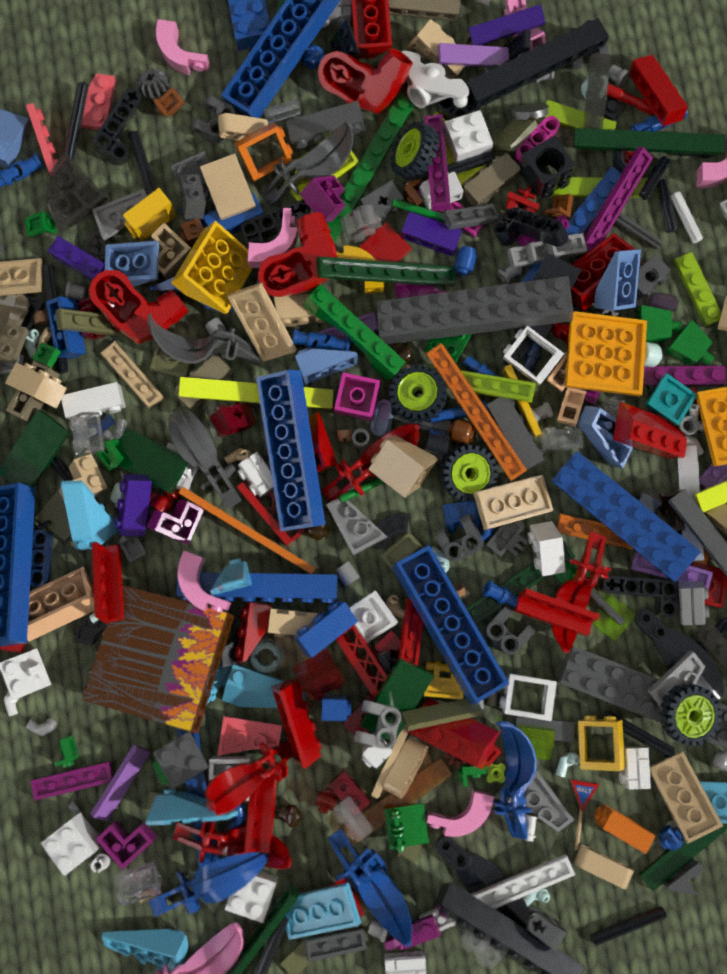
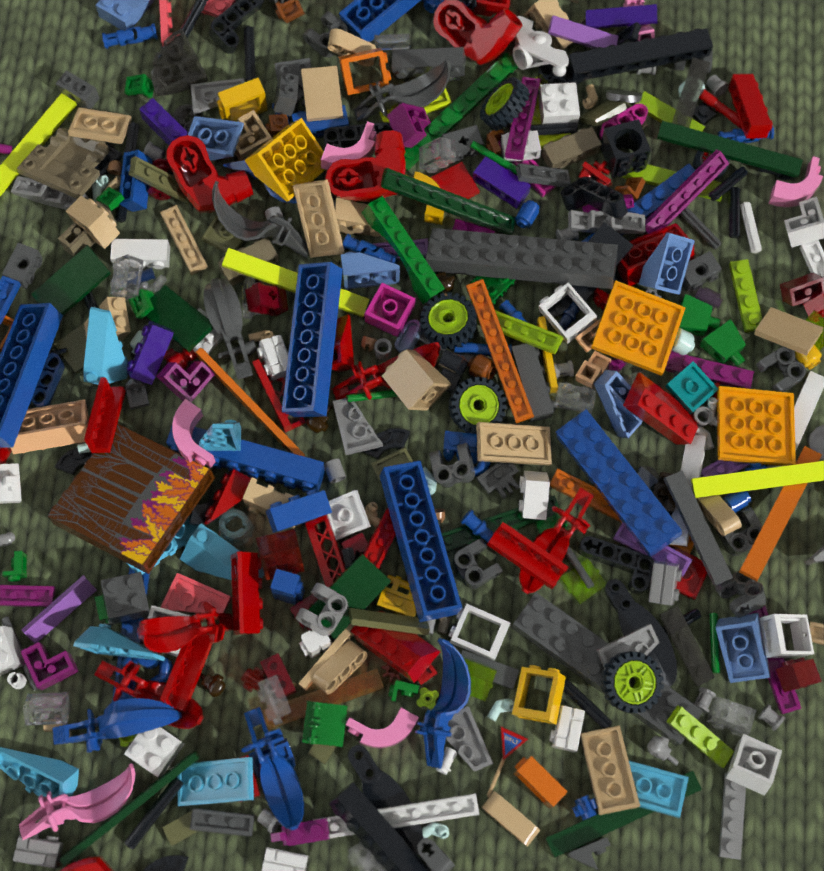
camera: 15 degrees right, 10 degrees down
(497, 121) = (592, 97): none -> tan arm

